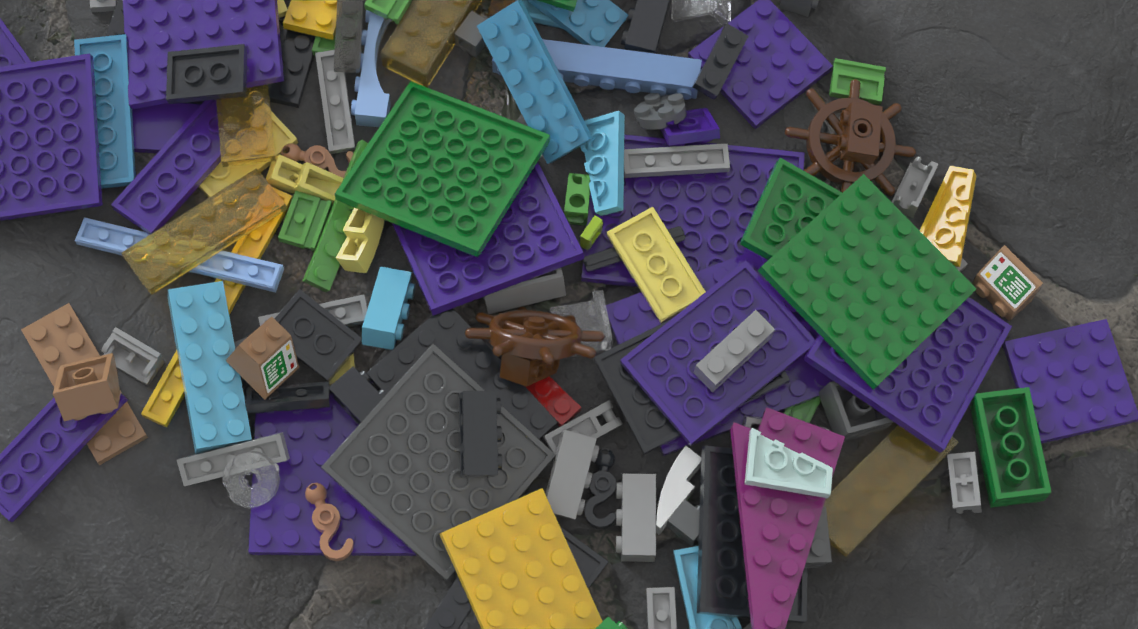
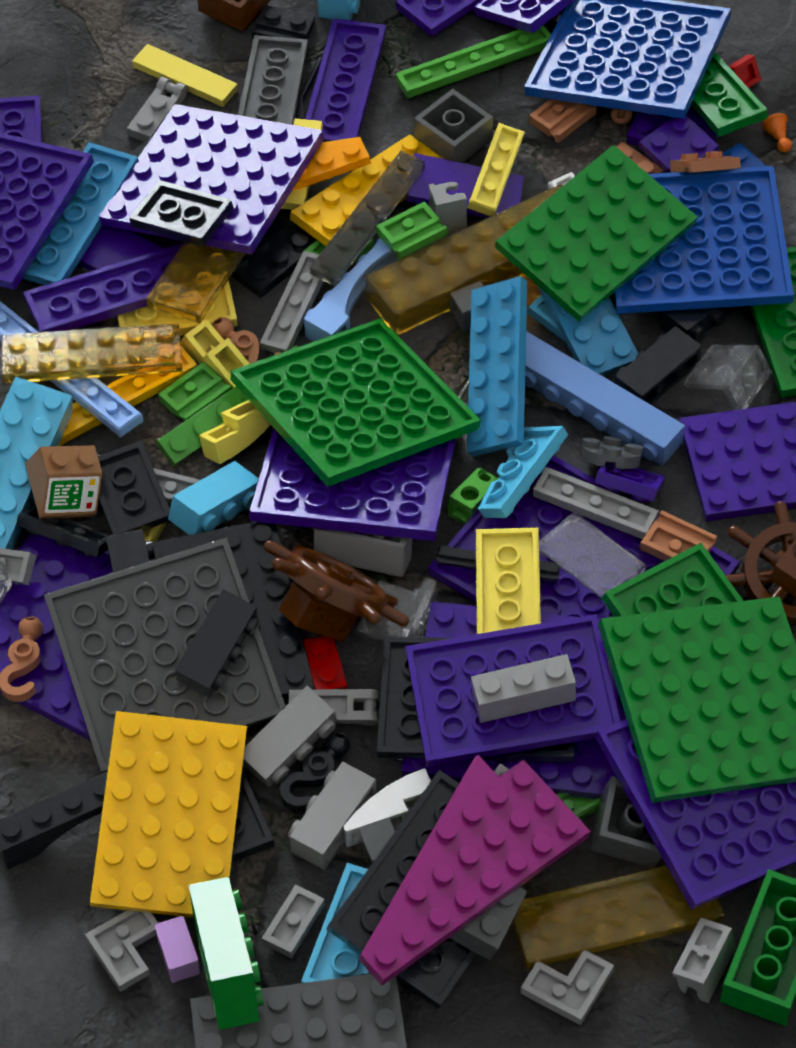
camera: 35 degrees right, 15 degrees down
(591, 233) = (462, 527): lime tile -> none
(698, 206) = (589, 555): none -> clear piece
(720, 61) = (703, 434): black plate -> none
(752, 160) = (673, 536): none -> nougat plate
(783, 469) = (495, 818): light aqua wing -> none
(888, 562) = (571, 994): none -> light grey plate

